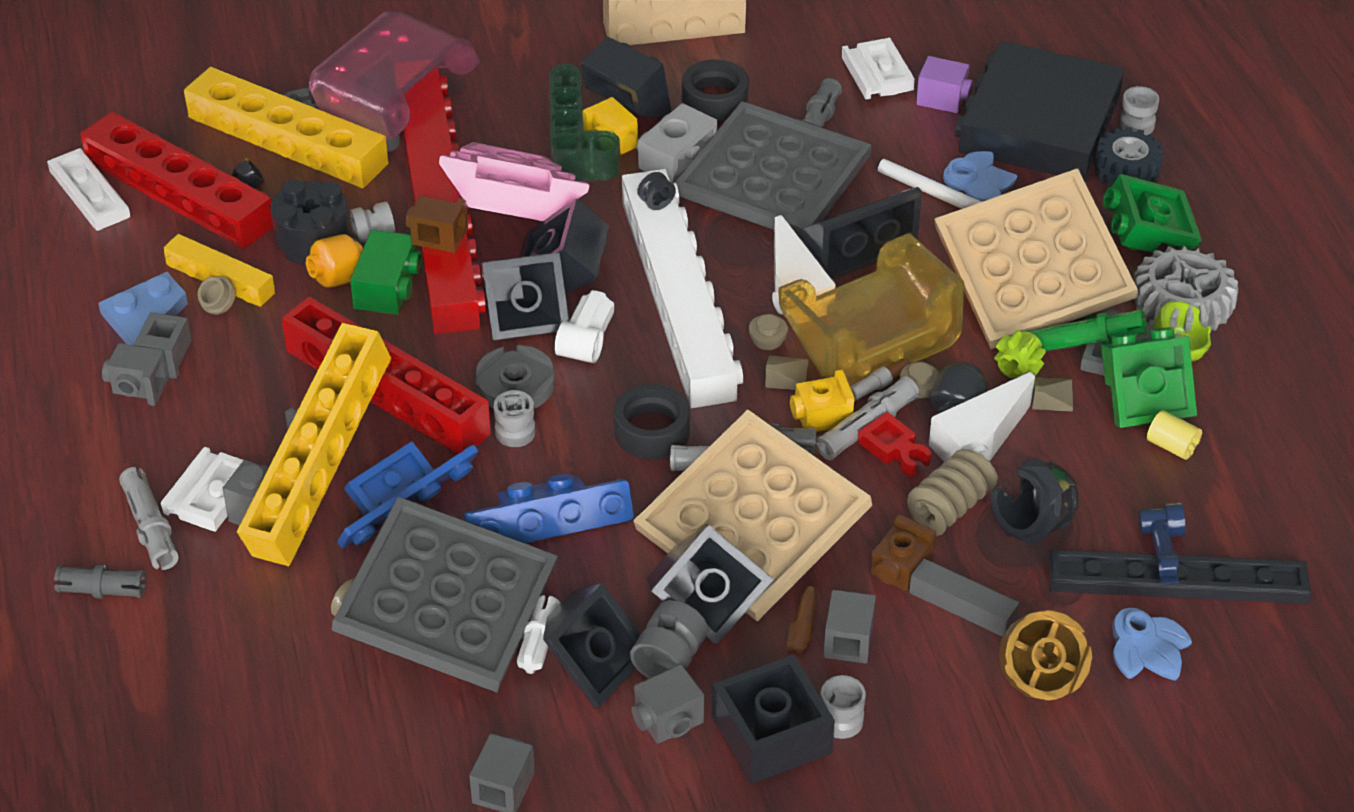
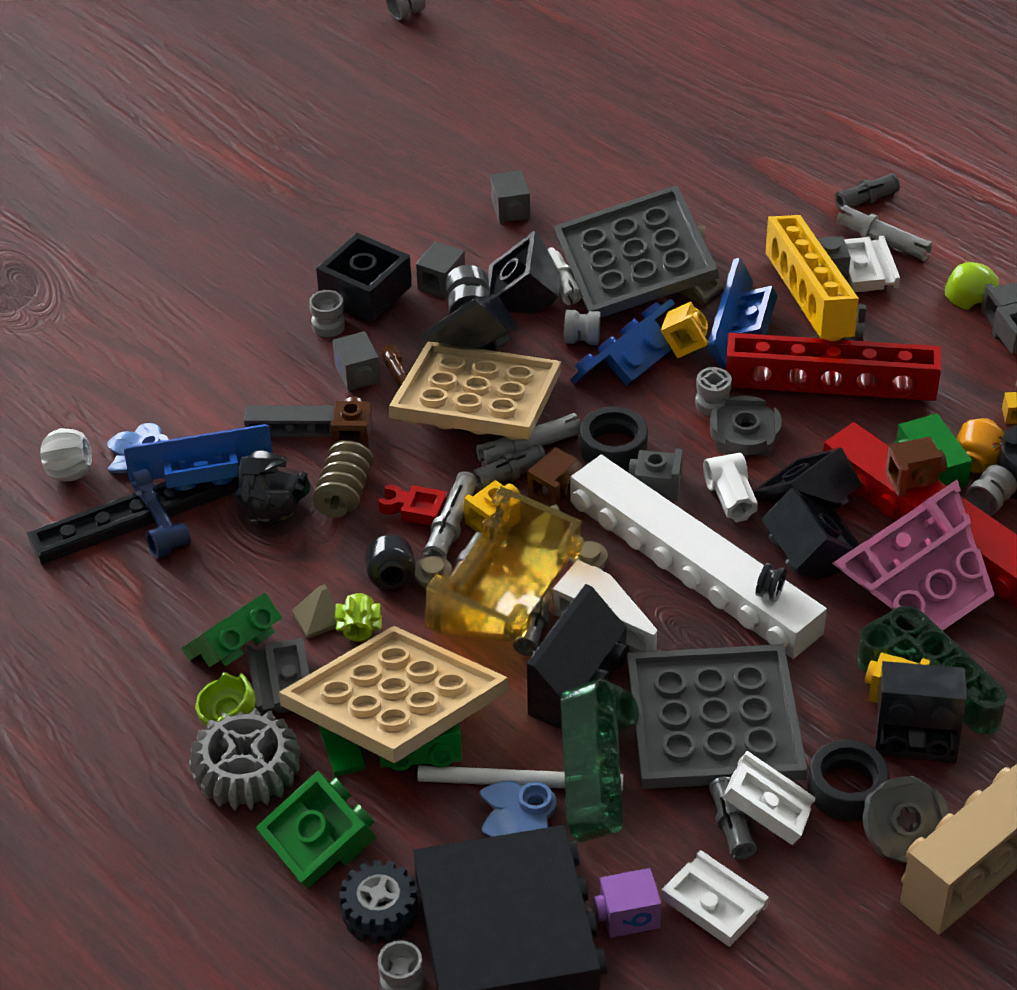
camera: 150 degrees right, 0 degrees up
(139, 418) = (968, 284): none -> lime hair
(481, 481) = (690, 326): none -> yellow brick
(577, 552) = (582, 327): none -> light grey wheel
(640, 363) = (659, 471): none -> dark grey brick
(675, 141) = (824, 694): light grey brick -> none
(716, 45) = (884, 807): none -> dark grey plate
(741, 395) = (551, 477): none -> reddish brown brick
(790, 89) = (769, 798): none -> white plate
(895, 160) = (591, 756): none -> clear green beam
(982, 421) = (353, 530): white slope -> none
(1045, 655) = (206, 384): pearl gold cylinder -> none
(1091, 330) = (295, 651): green pin -> none
(1097, 554) = (198, 457): none -> blue bracket
(1174, 434) = (190, 612): light yellow piece -> none
(1239, 644) = (66, 454): none -> white piece

